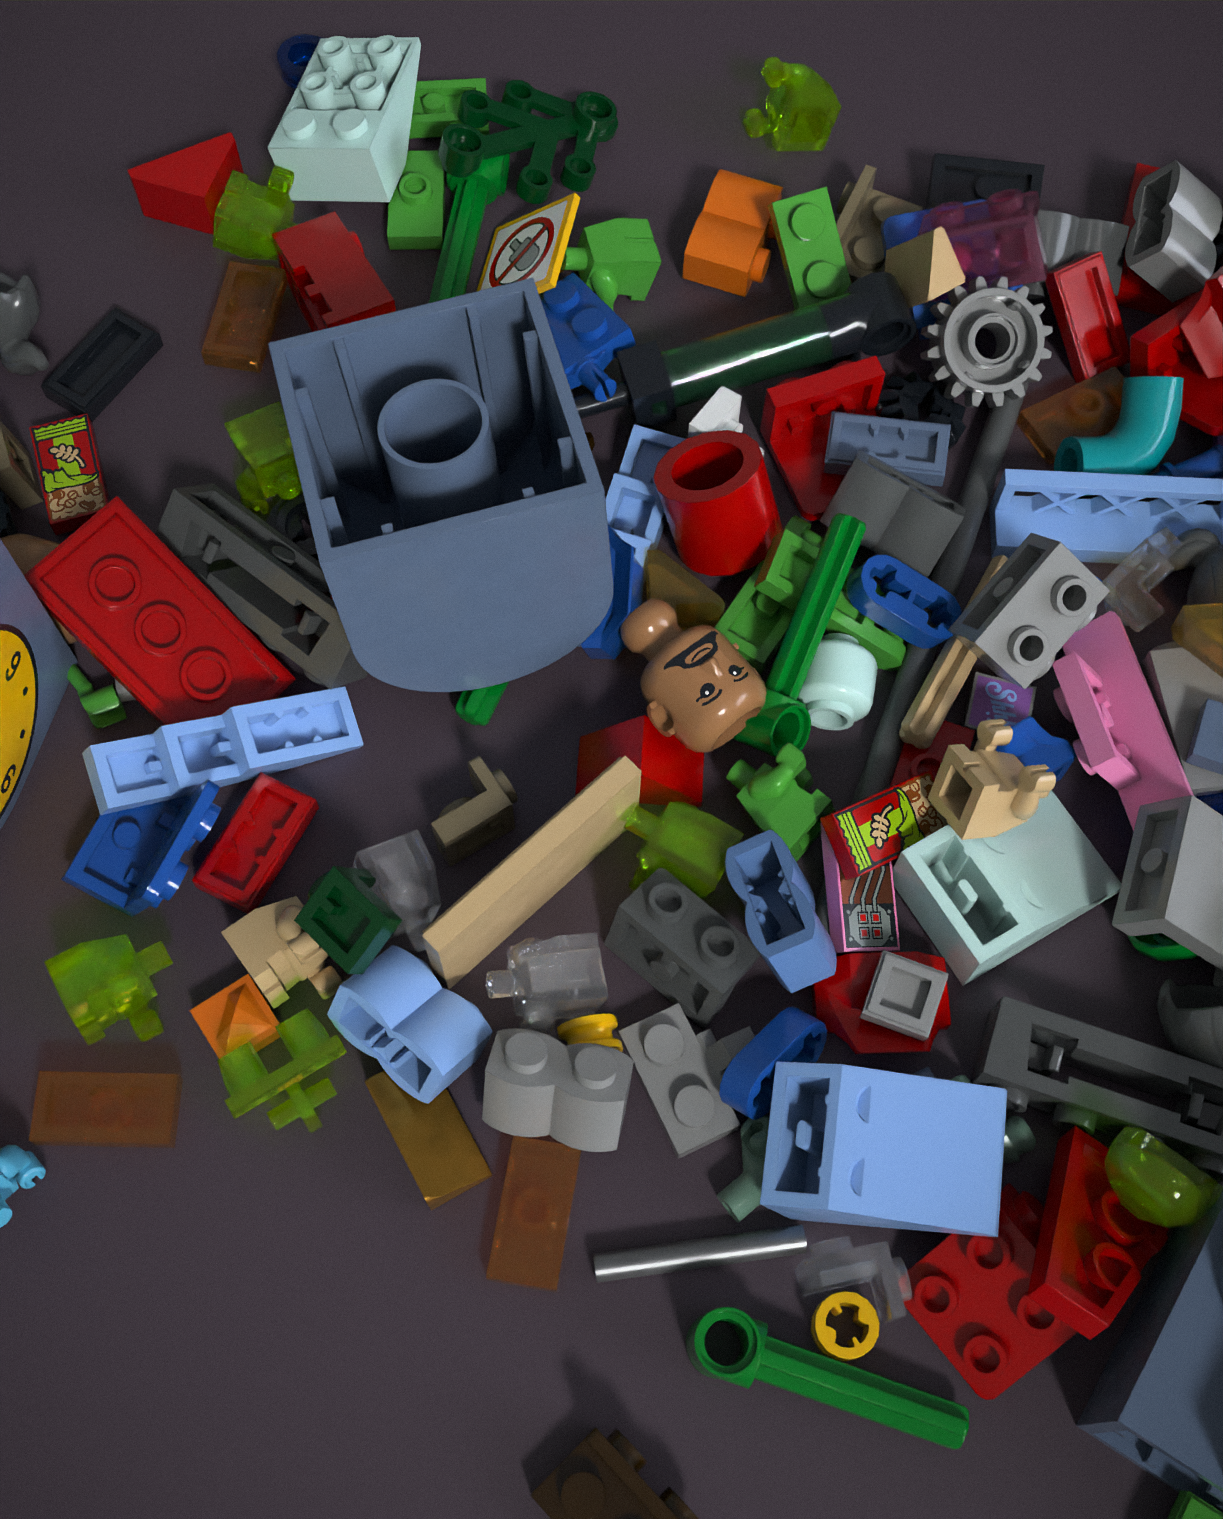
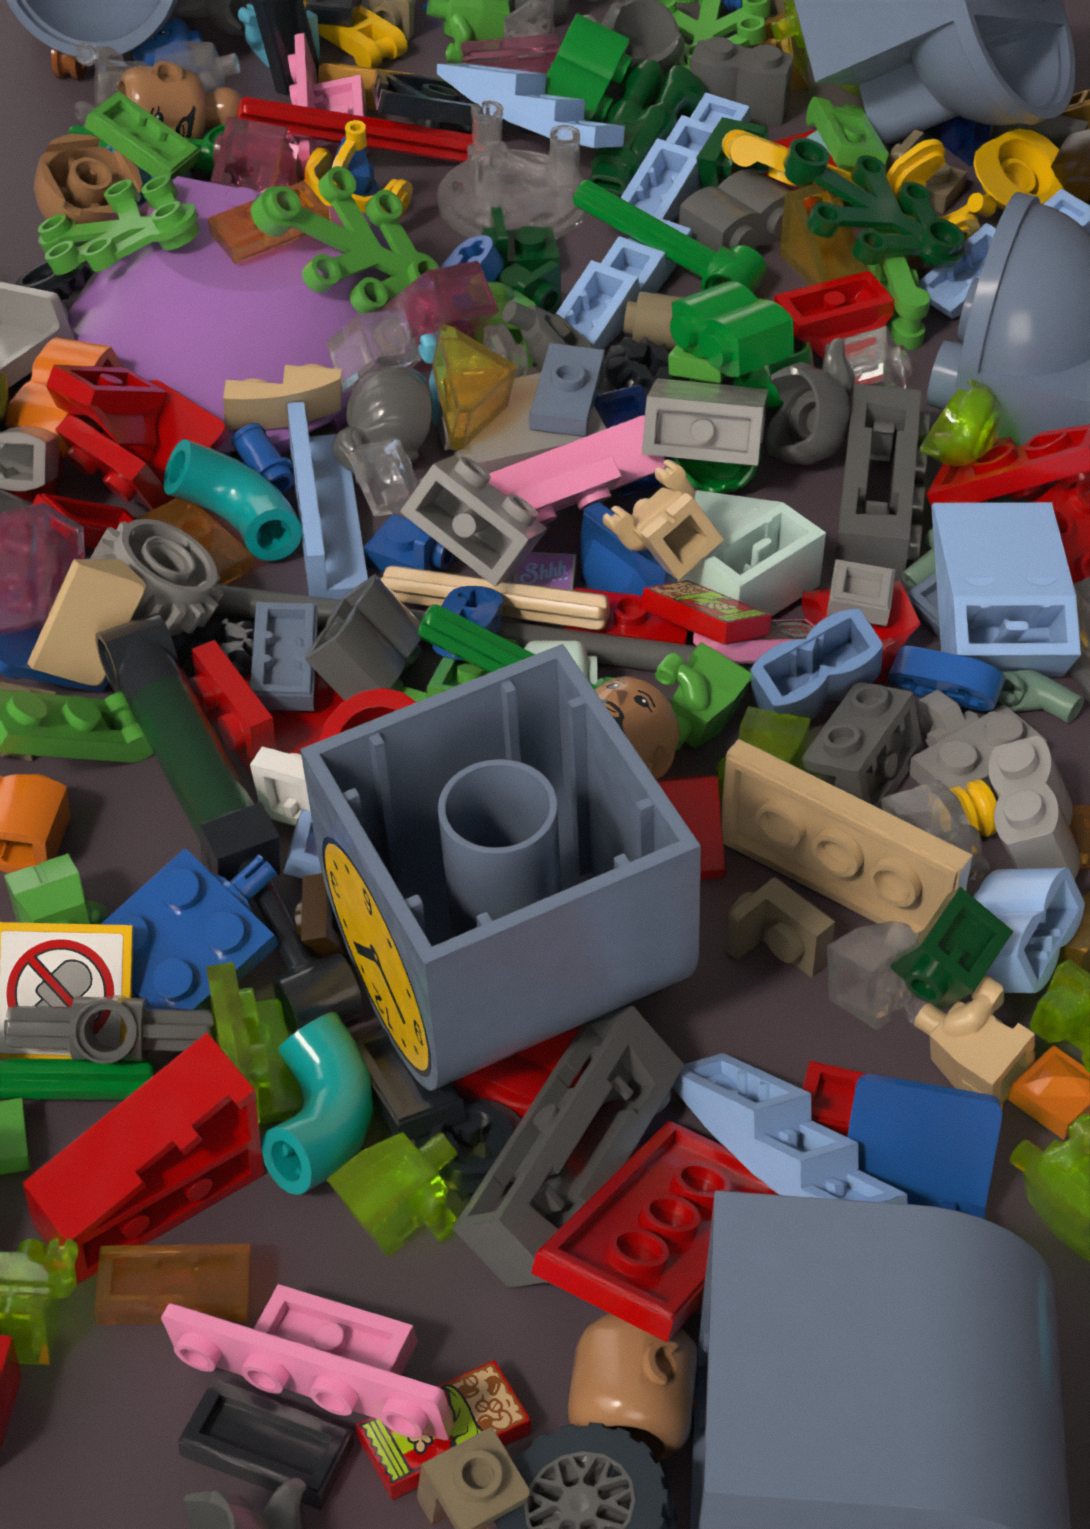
camera: 100 degrees left, 20 degrees down
(136, 389) = (320, 1351): none -> bright pink bracket
(475, 262) = (74, 1028): none -> dark grey axle

